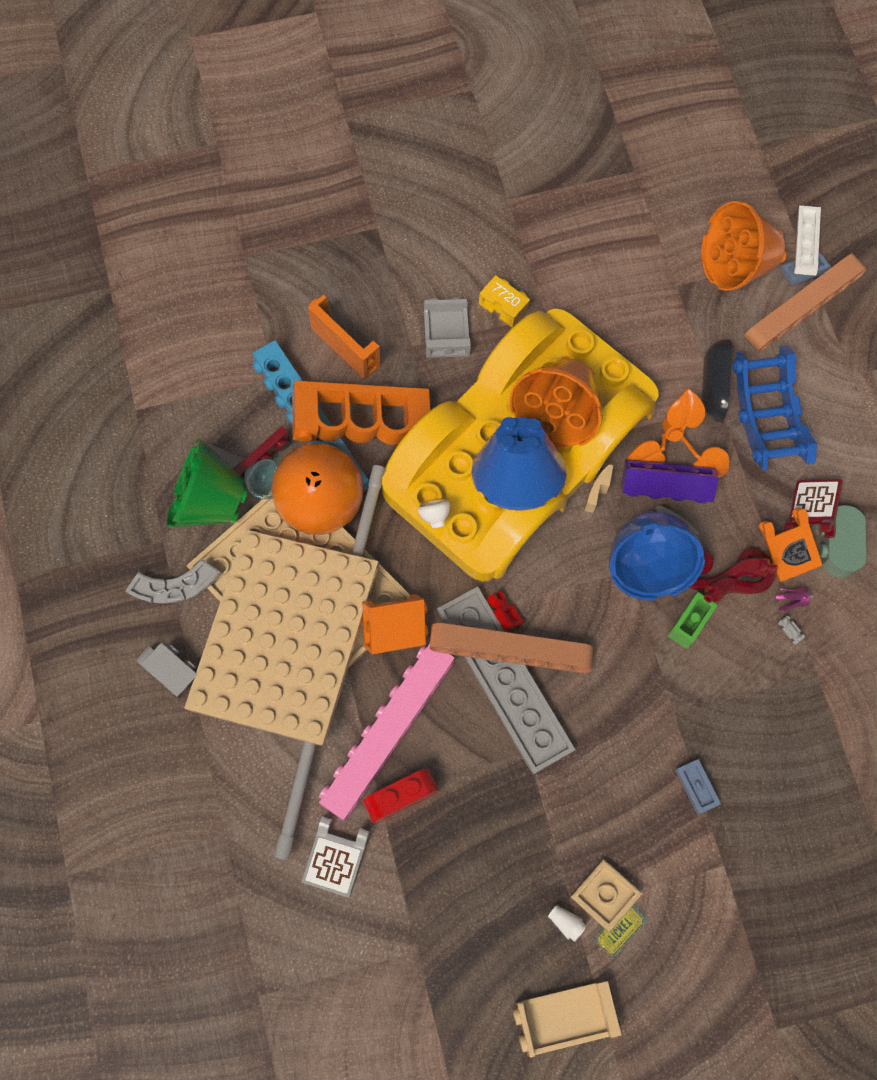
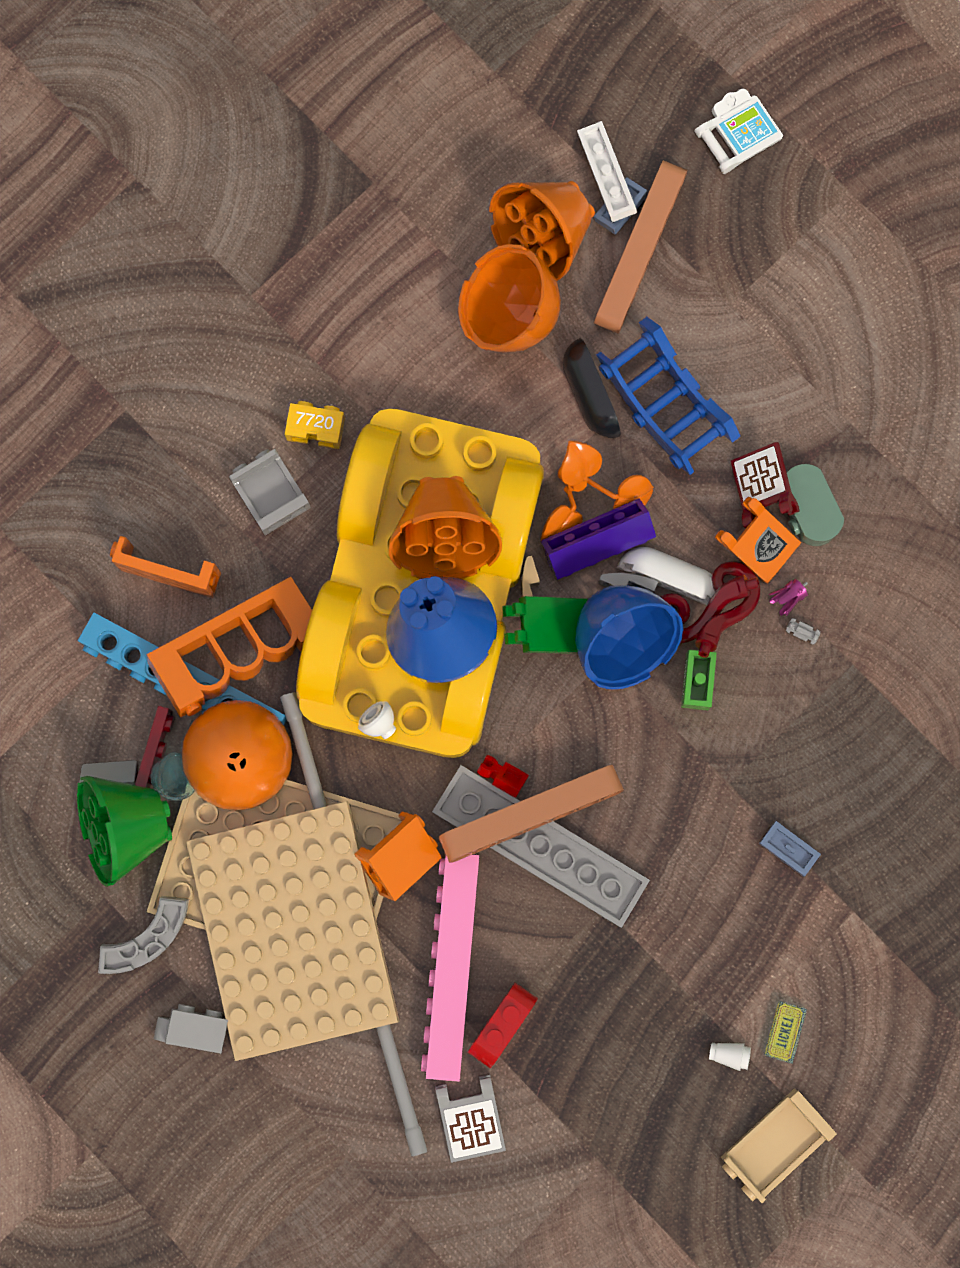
camera: 25 degrees left, 10 degrees up
(597, 515) = (546, 624): none -> green tile
(606, 896) = (755, 1007): tan tile -> none
(693, 283) = (509, 300): none -> orange piece
(711, 535) = (669, 572): none -> white brick

